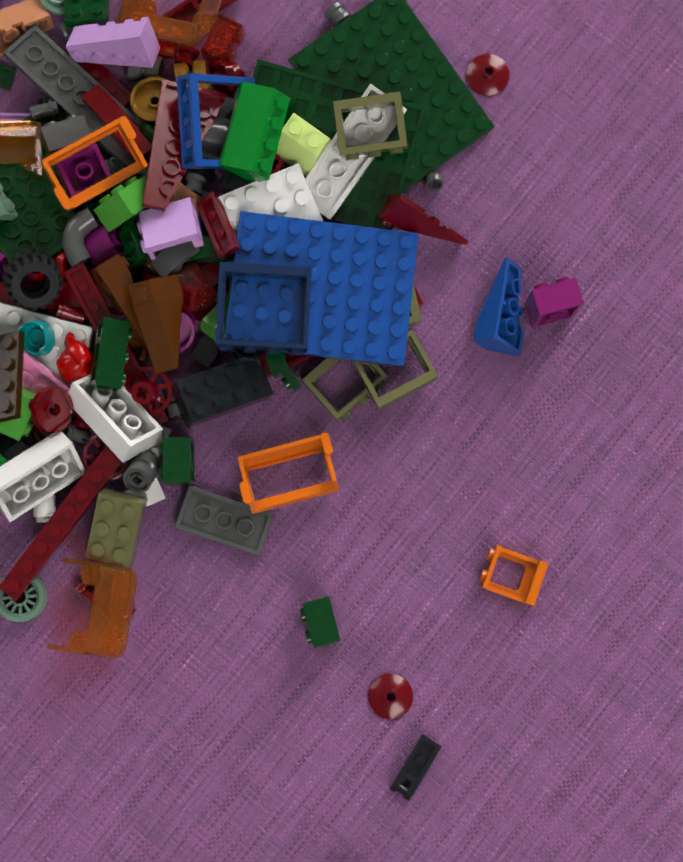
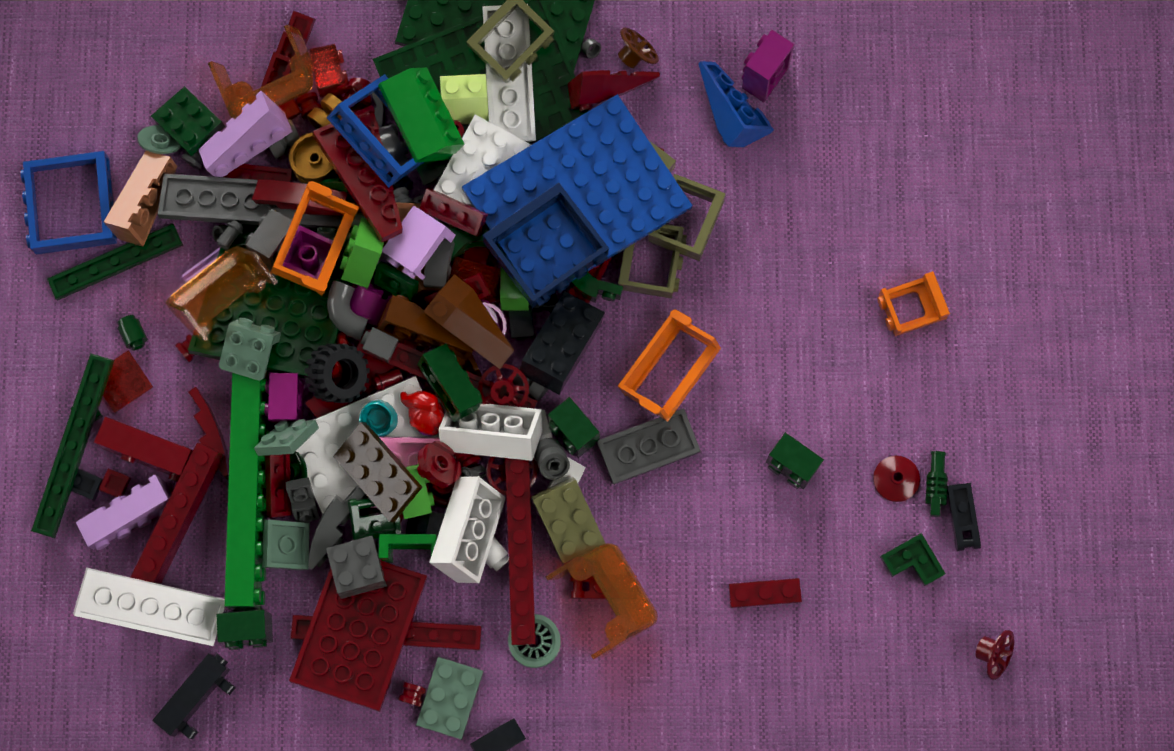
camera: 35 degrees left, 5 degrees down
(81, 283) = (379, 344): none -> dark grey brick
(219, 701) = (765, 593): none -> dark red plate
(356, 766) = (916, 554): none -> dark green plate
(416, 726) = (936, 483): none -> dark green hinge
(463, 209) = (634, 51): none -> reddish brown wheel

